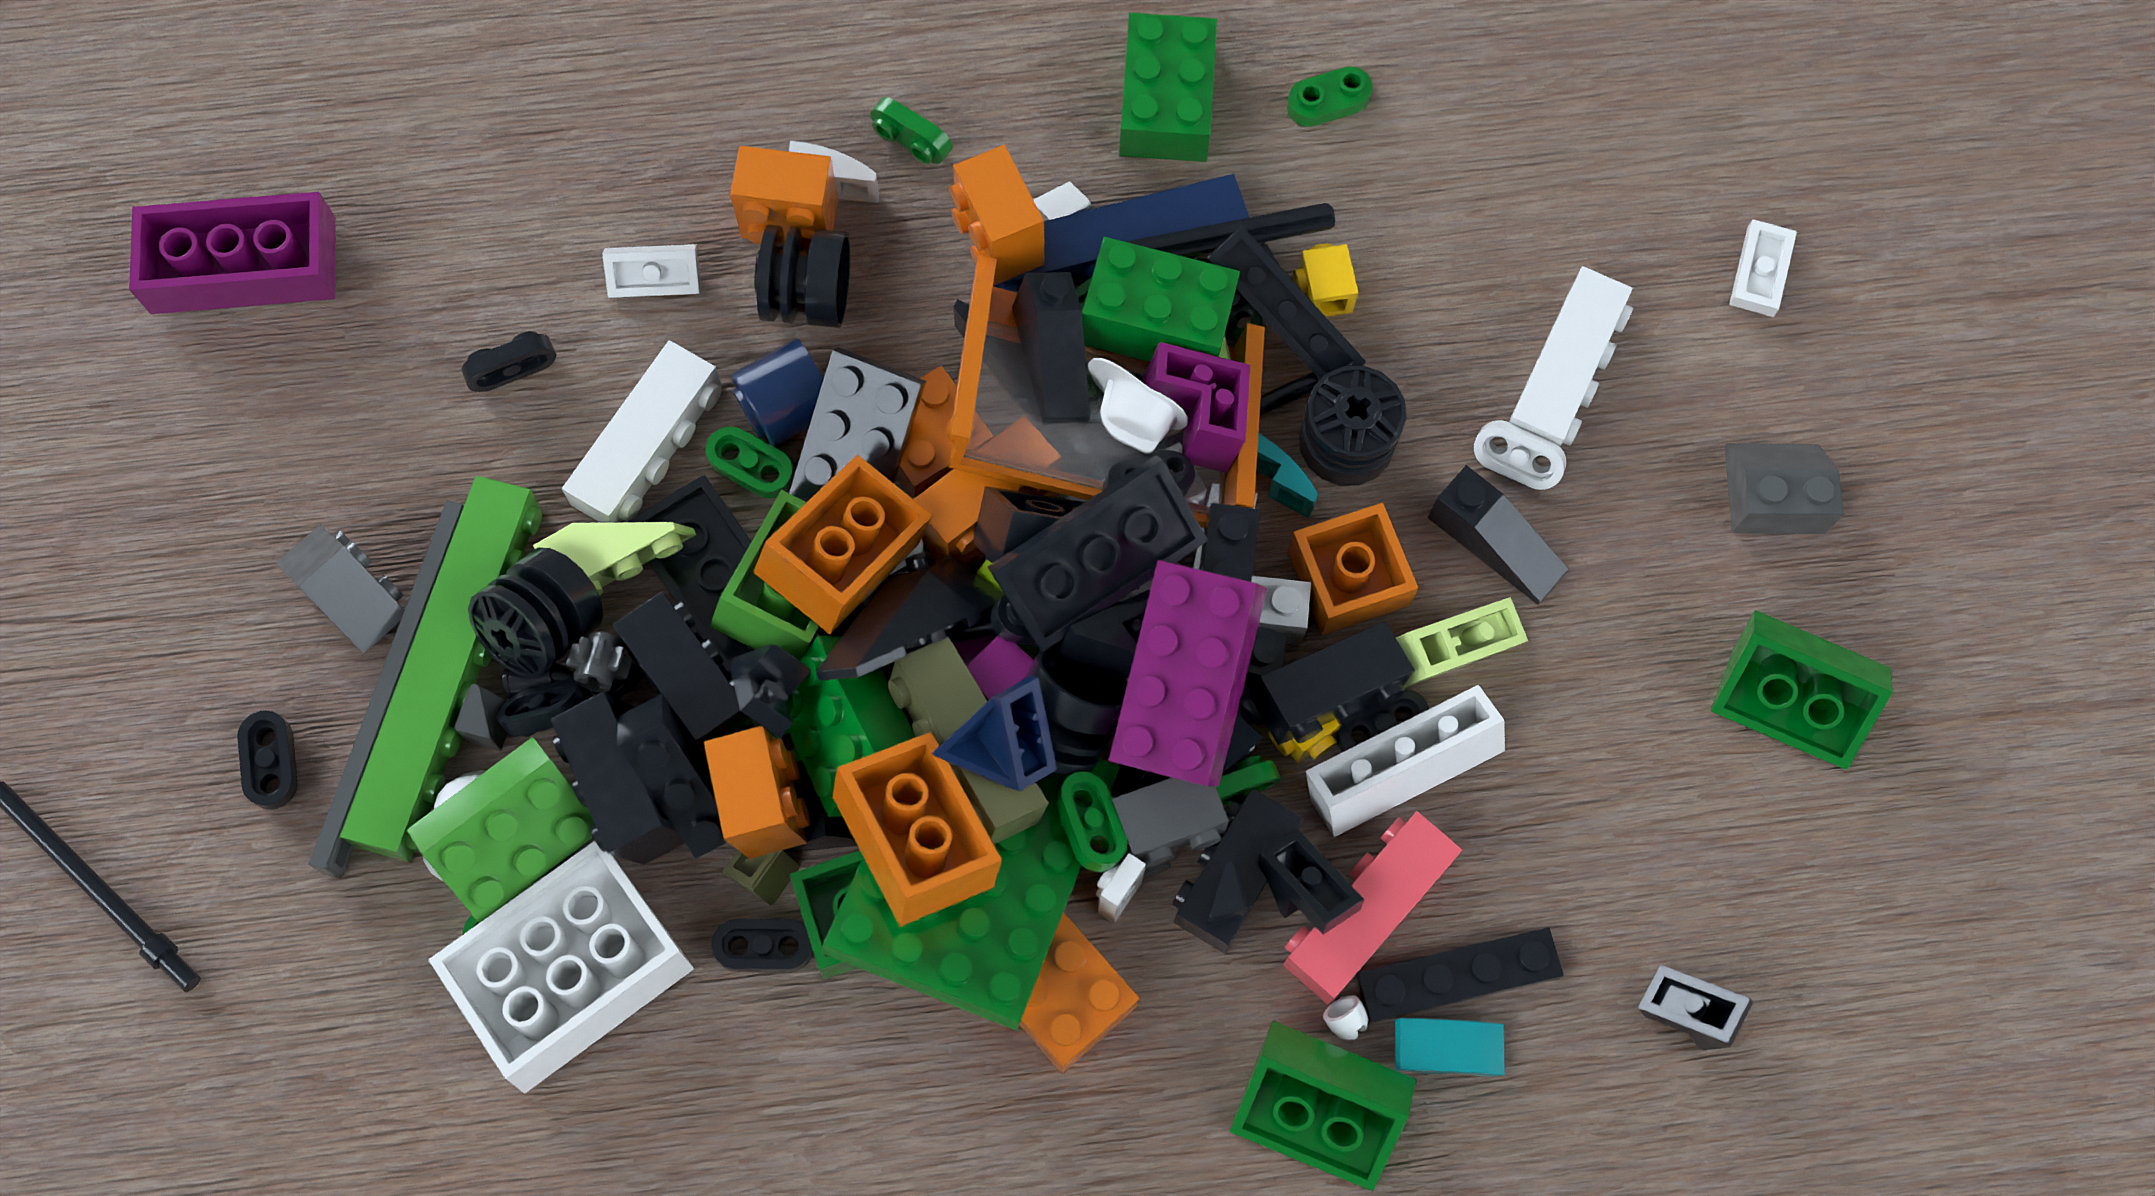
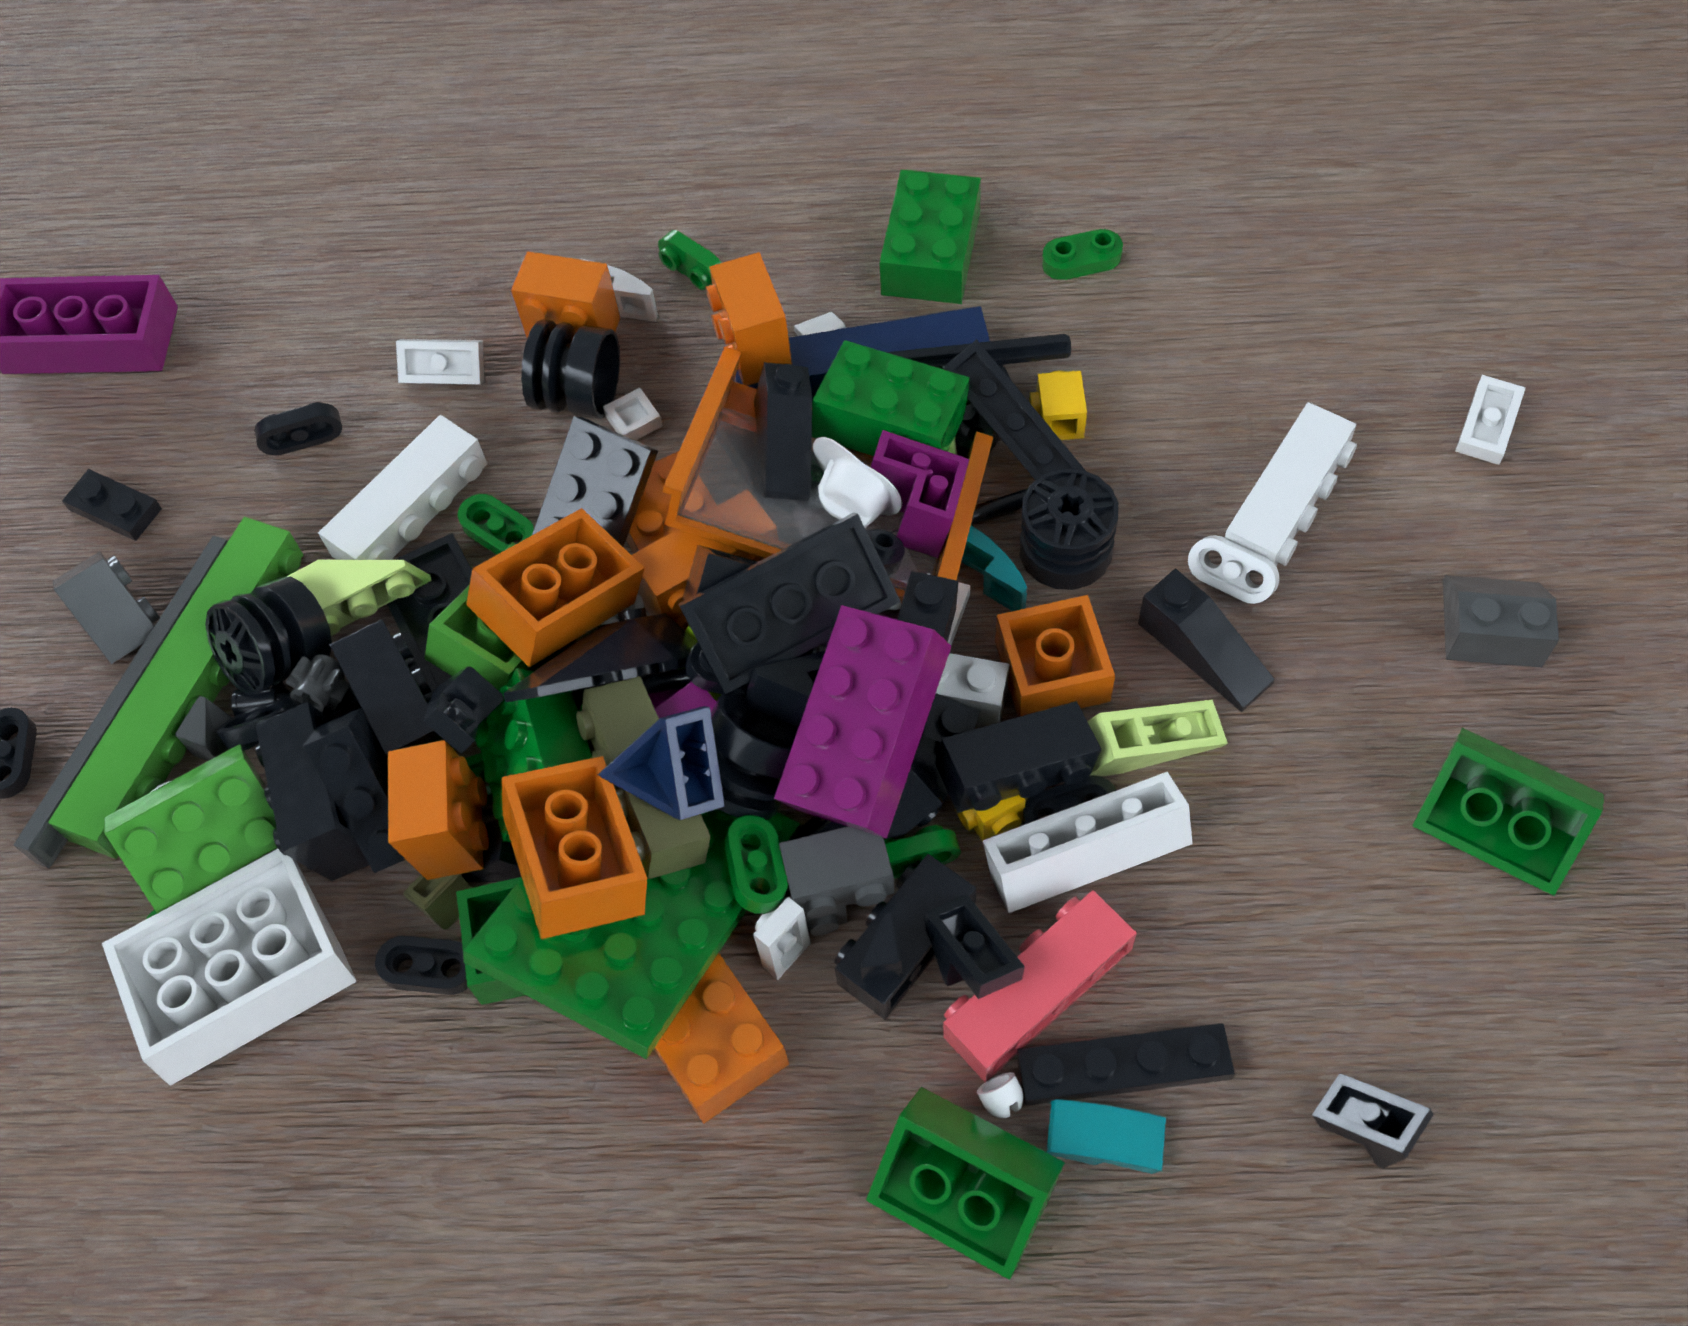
camera: 15 degrees right, 10 degrees down
(314, 464) = (112, 504): none -> black plate
(779, 392) = (527, 464): dark blue piece -> none
(874, 322) = (633, 415): none -> white plate

